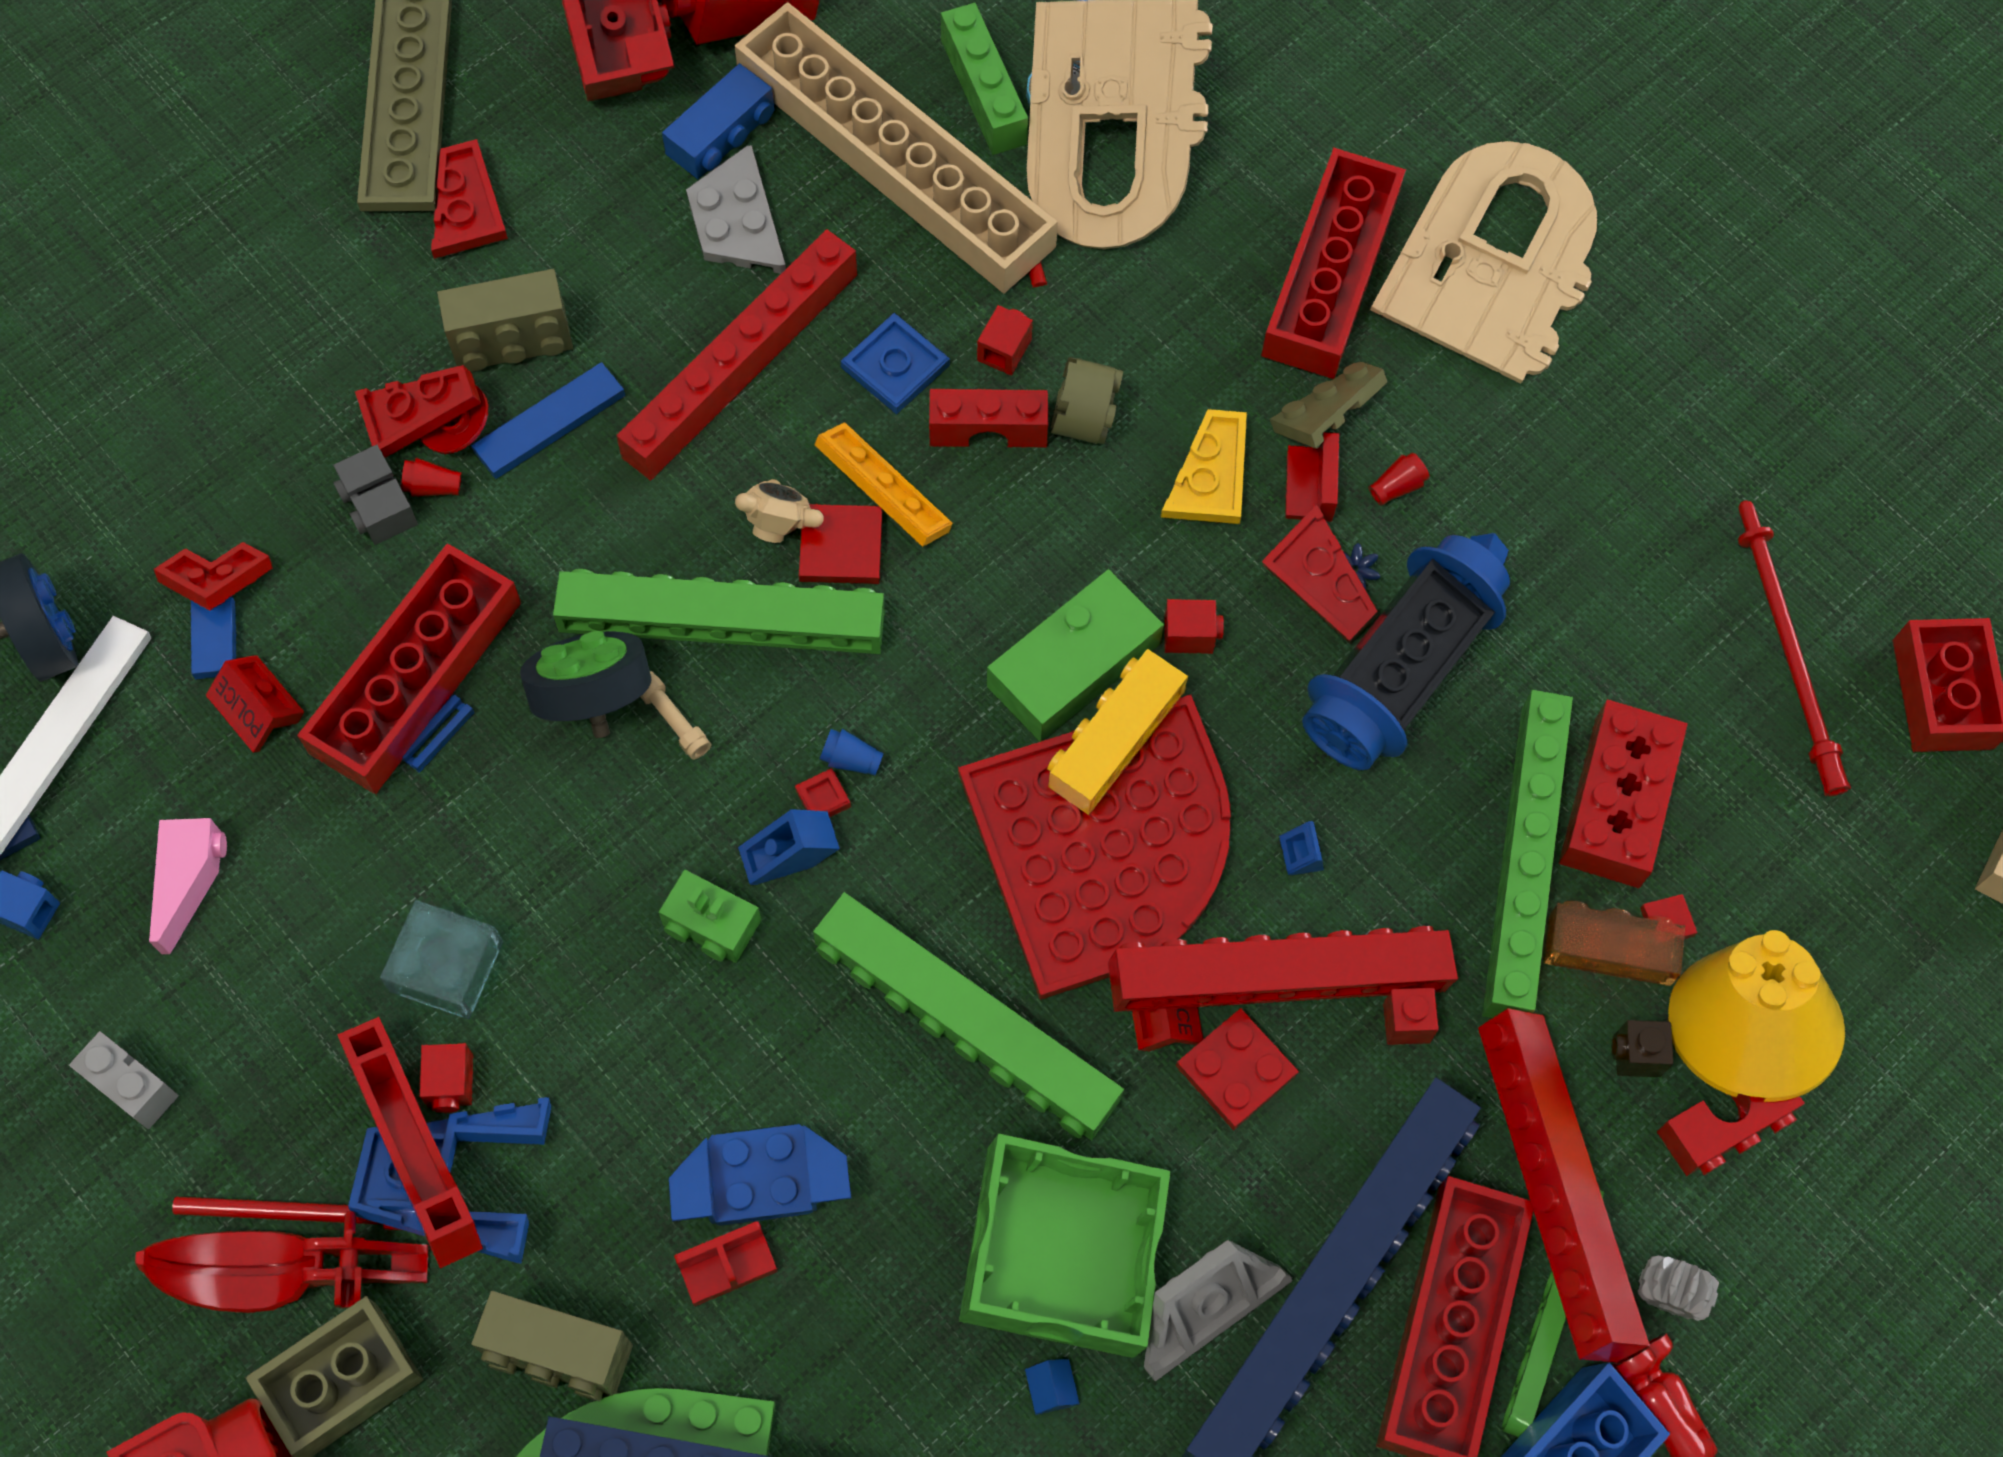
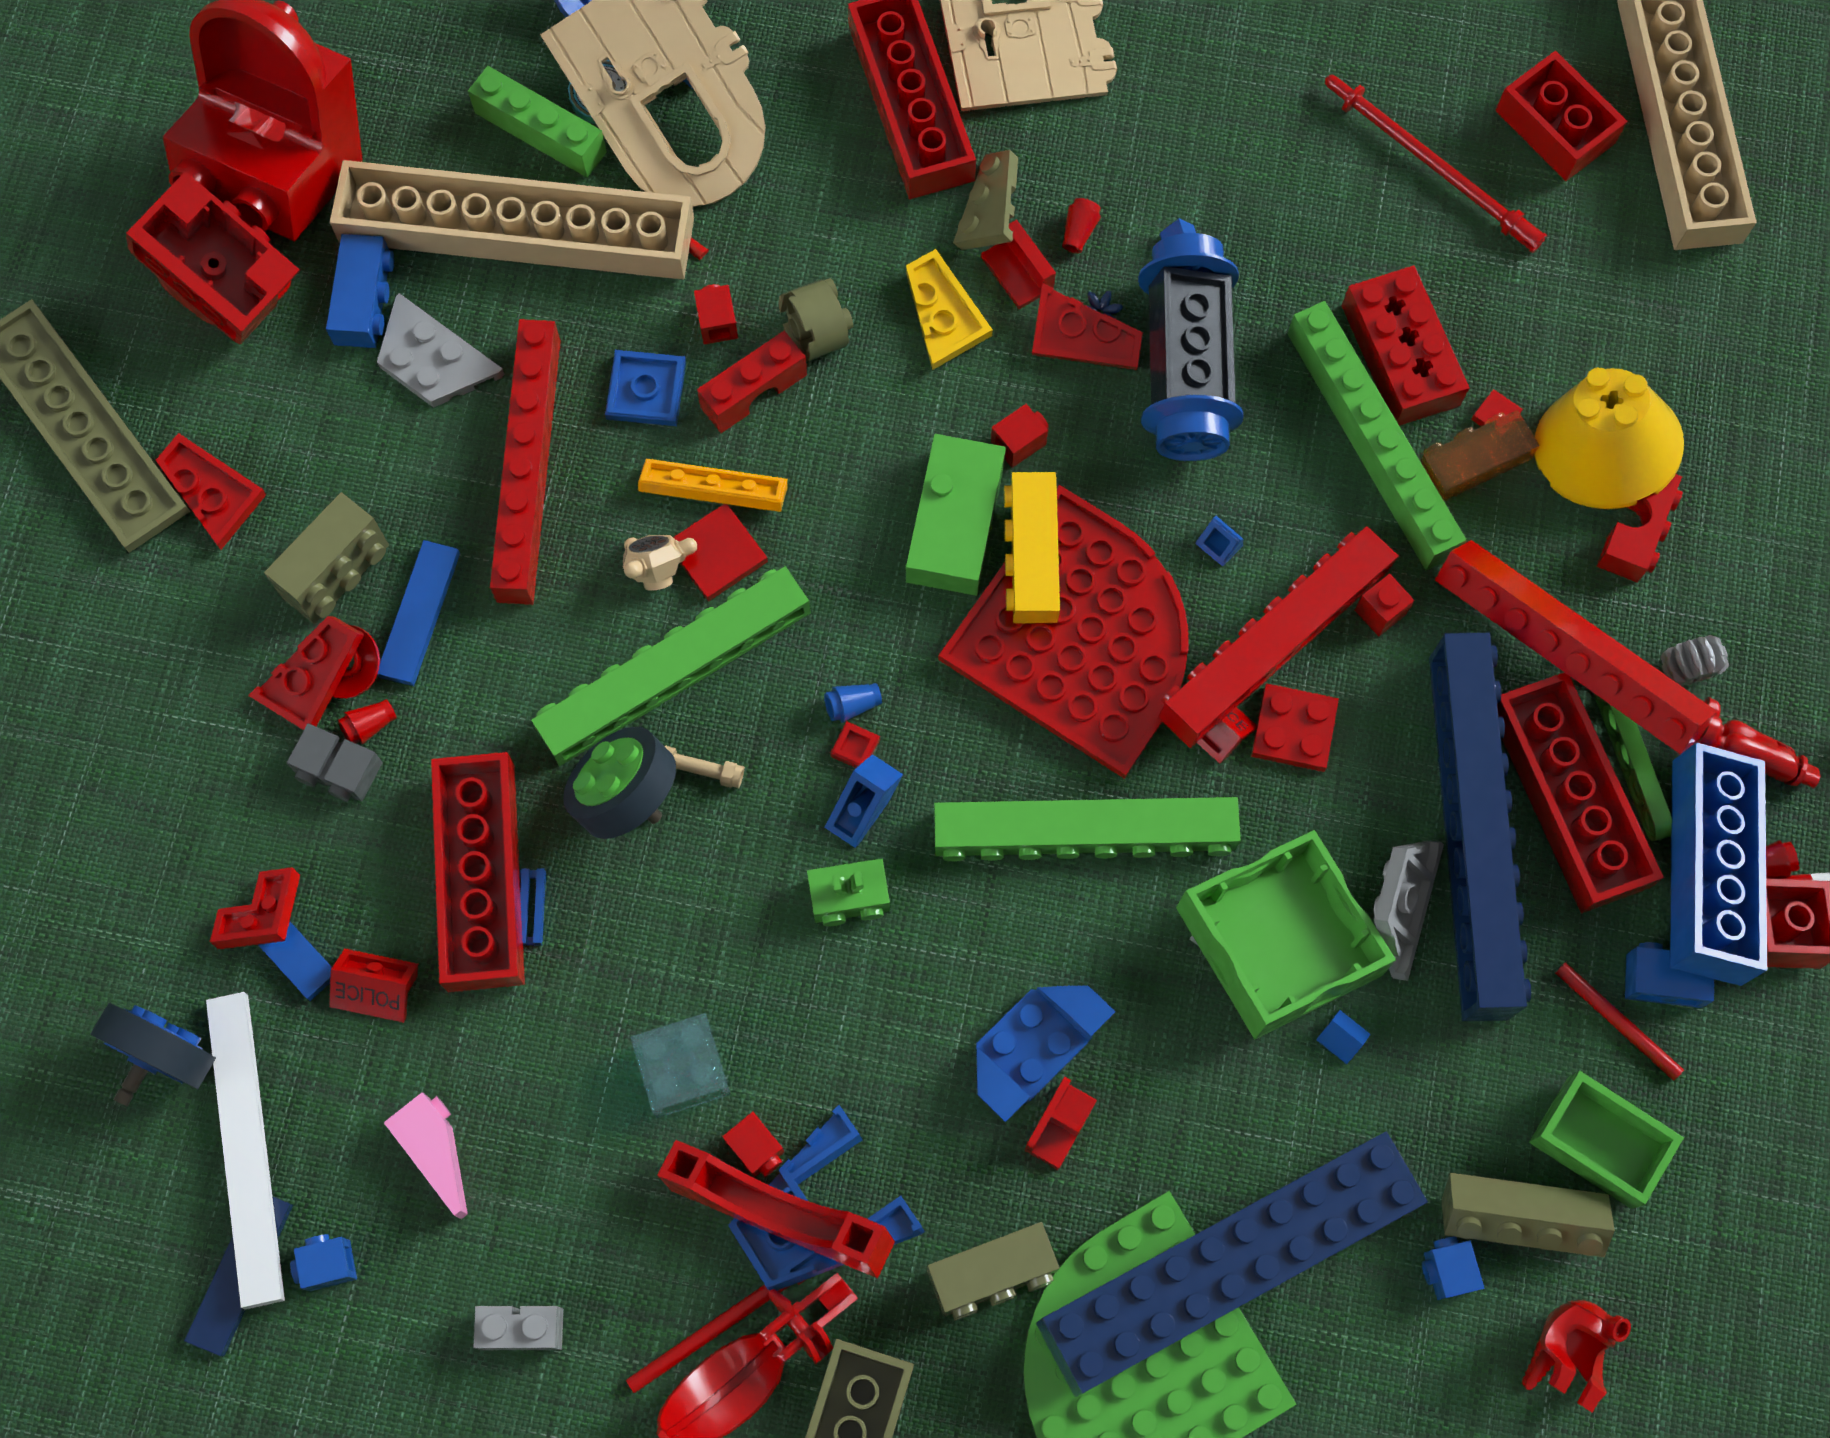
camera: 35 degrees left, 5 degrees up
(1643, 1048) = (1551, 515): dark brown brick -> none

